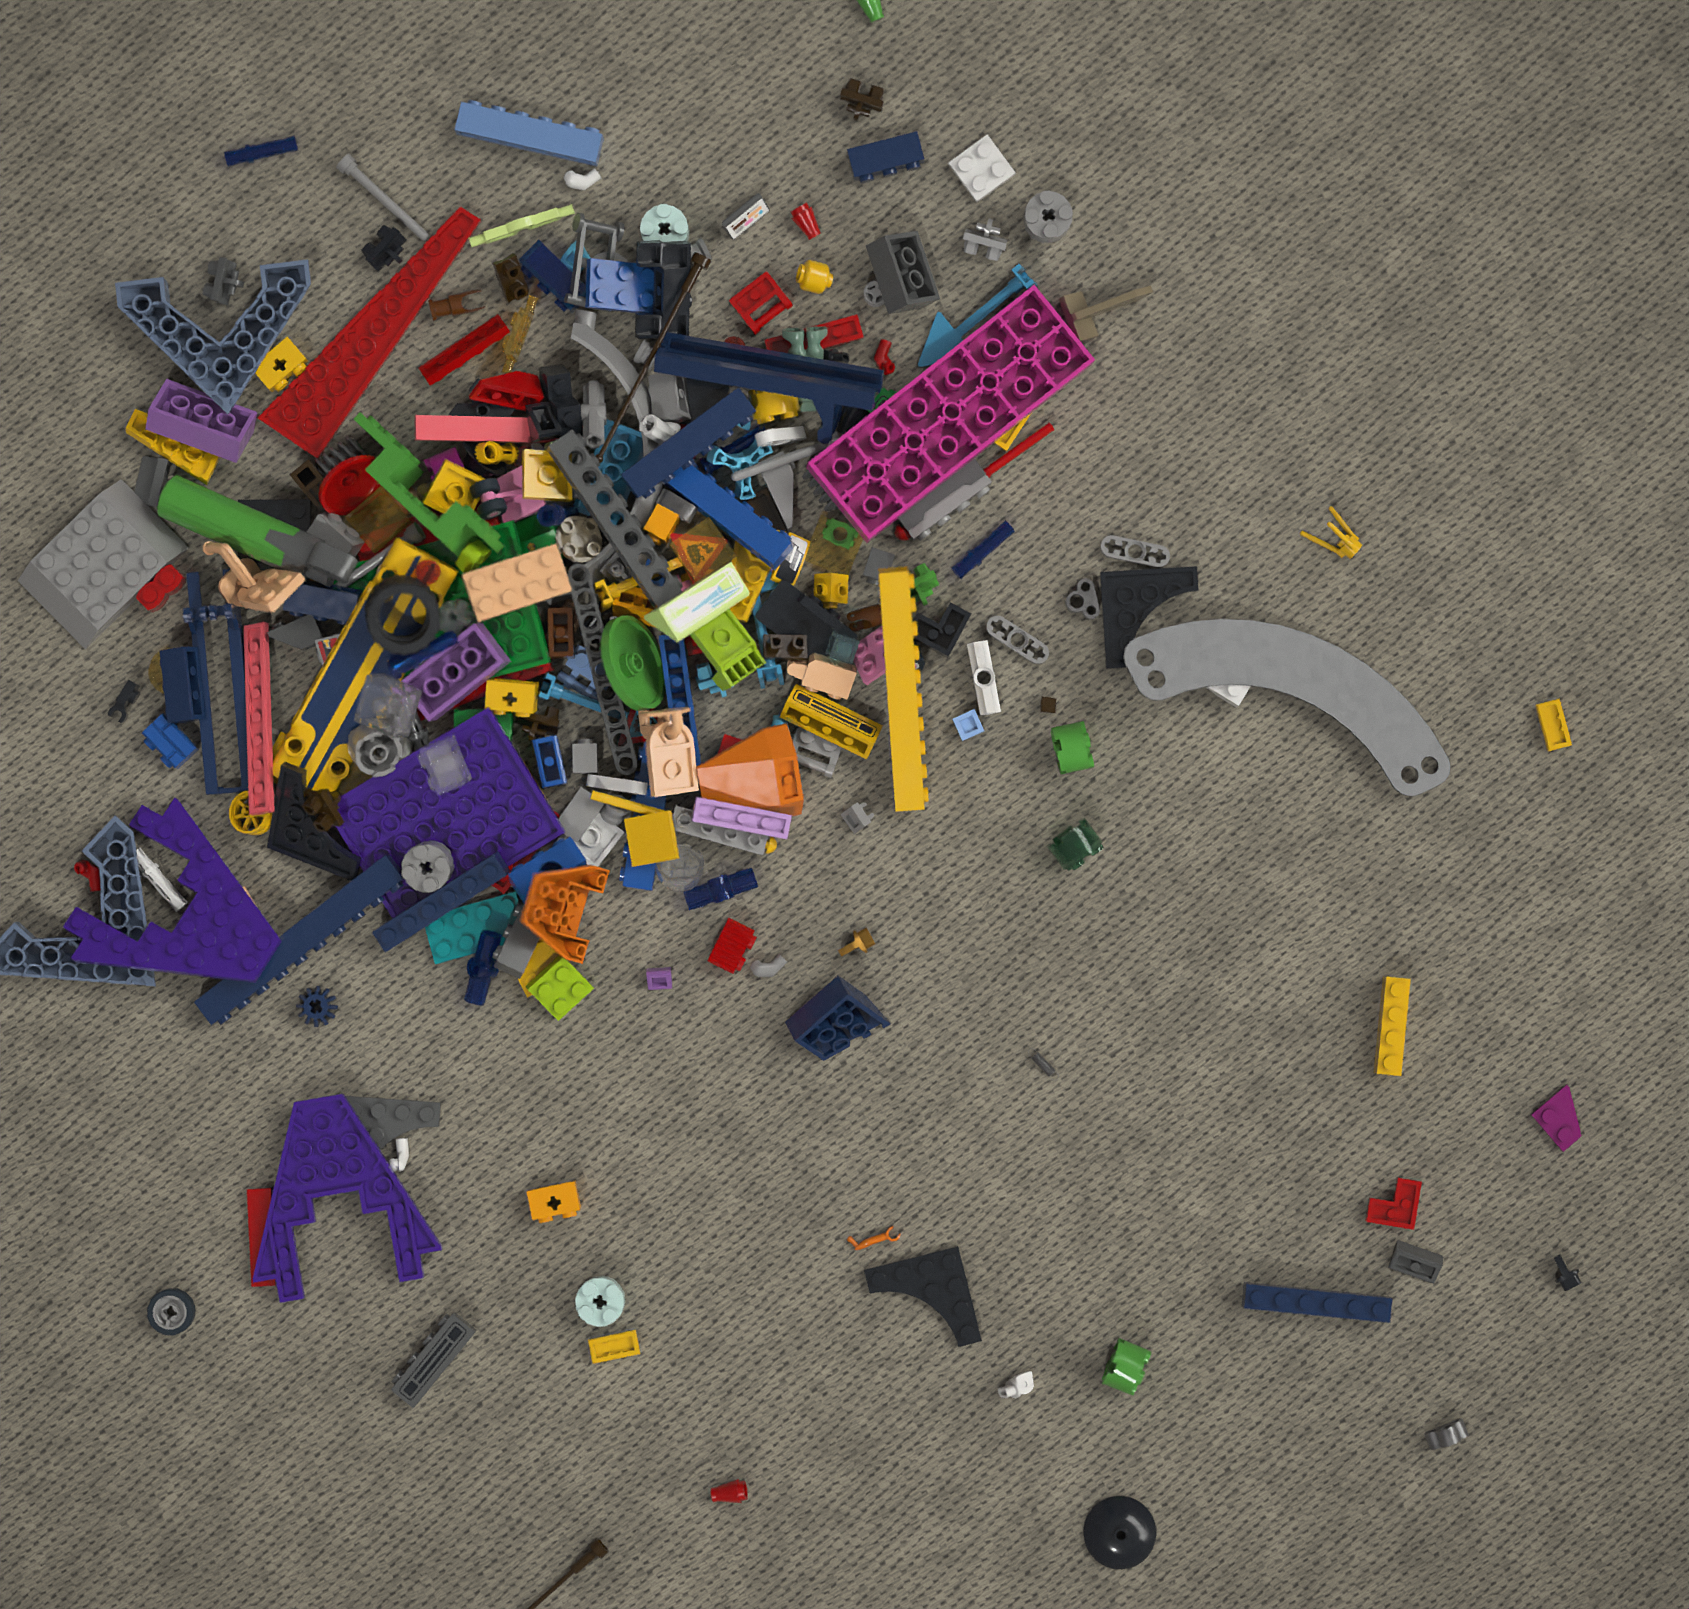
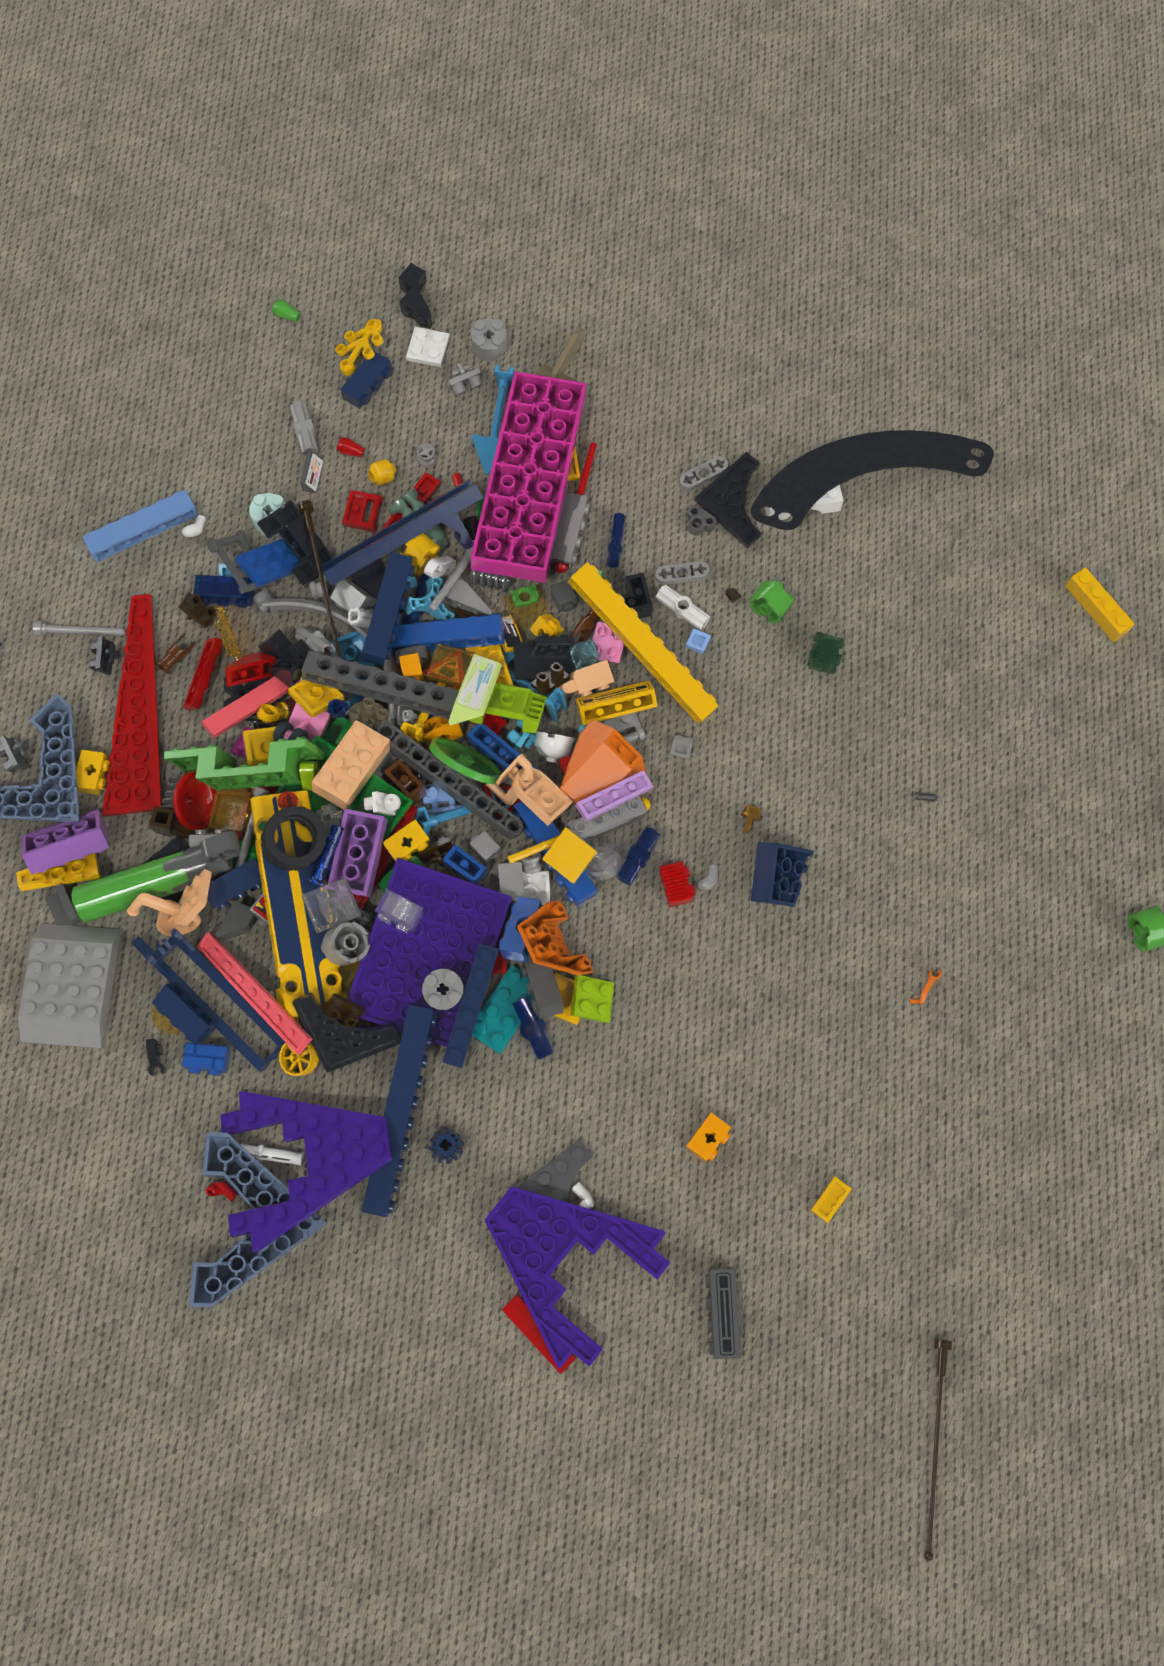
camera: 40 degrees left, 15 degrees down
(165, 583) = (123, 961): red brick -> none
(181, 1304) = (509, 1444): wheel -> none
(514, 646) = (382, 803): none -> white hips
(528, 222) = (181, 572): yellowish green piece -> none
(611, 1292) = (794, 1188): light aqua brick -> none
(616, 784) = (519, 843): white beam -> none
(659, 978) = (649, 942): medium lavender slope -> none
(731, 1492) = (990, 1229): red cone -> none
(734, 714) = (553, 746): none -> white cylinder
(777, 159) = (303, 427): none -> light grey piece
(852, 95) = (326, 362): dark brown hips -> none
(902, 272) = (431, 426): dark grey brick -> none
(913, 110) = (372, 328): none -> yellow plant
(938, 1281) = (988, 980): black plate -> none
(1007, 106) = (412, 303): none -> black arch
(1017, 1385) = (1096, 1001): white piece -> none
(1348, 544) = (818, 376): yellow plant -> none
(1553, 725) = (1021, 378): yellow plate -> none

